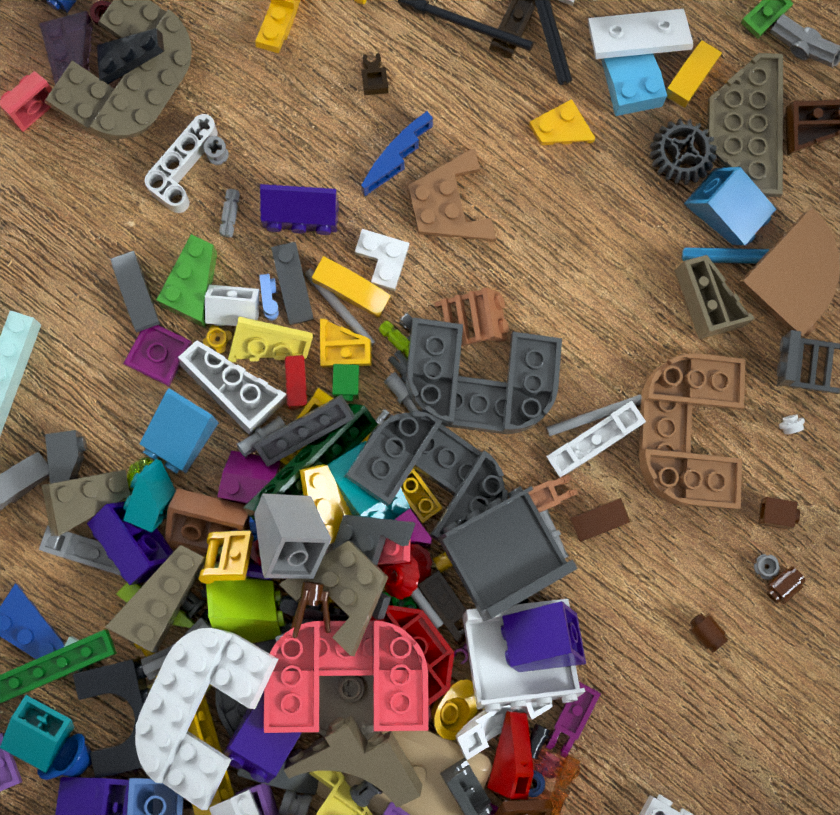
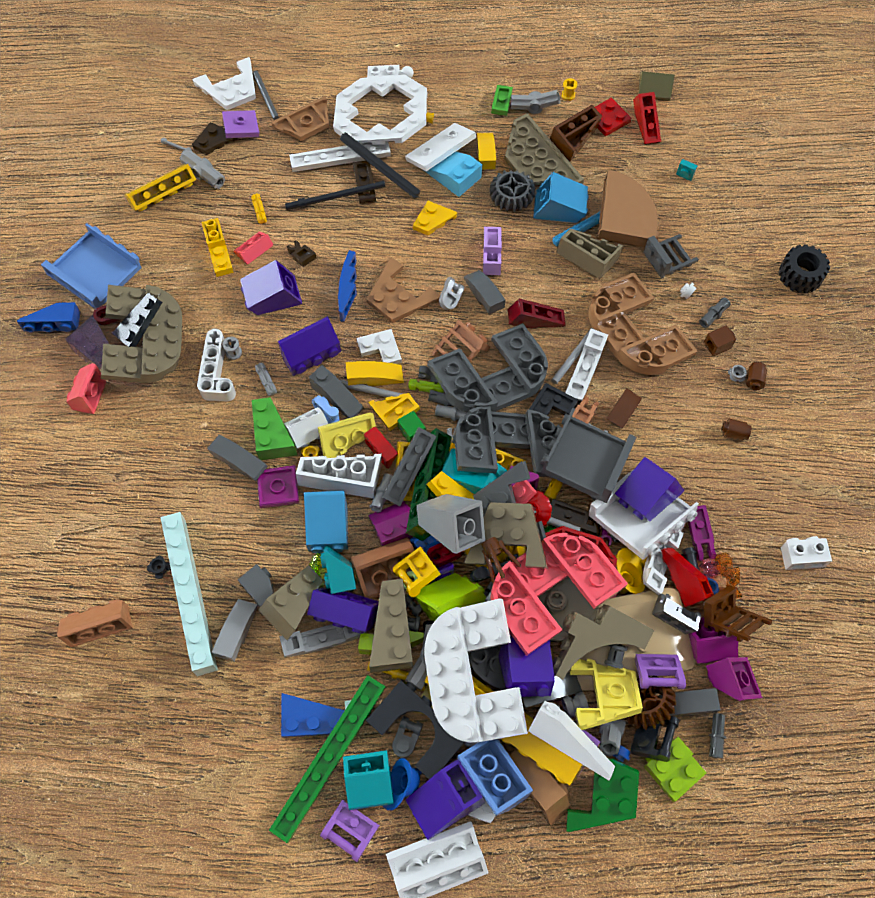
camera: 35 degrees left, 15 degrees down
(99, 719) = (404, 745): none -> dark grey plate
(306, 103) = (270, 289): none -> slope
(326, 30) = (253, 247): none -> coral slope
(501, 250) = (449, 299): none -> light grey plate
(527, 451) = (553, 398): none -> black plate
(550, 265) = (485, 291): none -> dark grey slope
(586, 337) = (535, 315): none -> dark red slope
(599, 217) = (492, 251): none -> lavender slope
(803, 473) = (714, 312): none -> dark grey pin

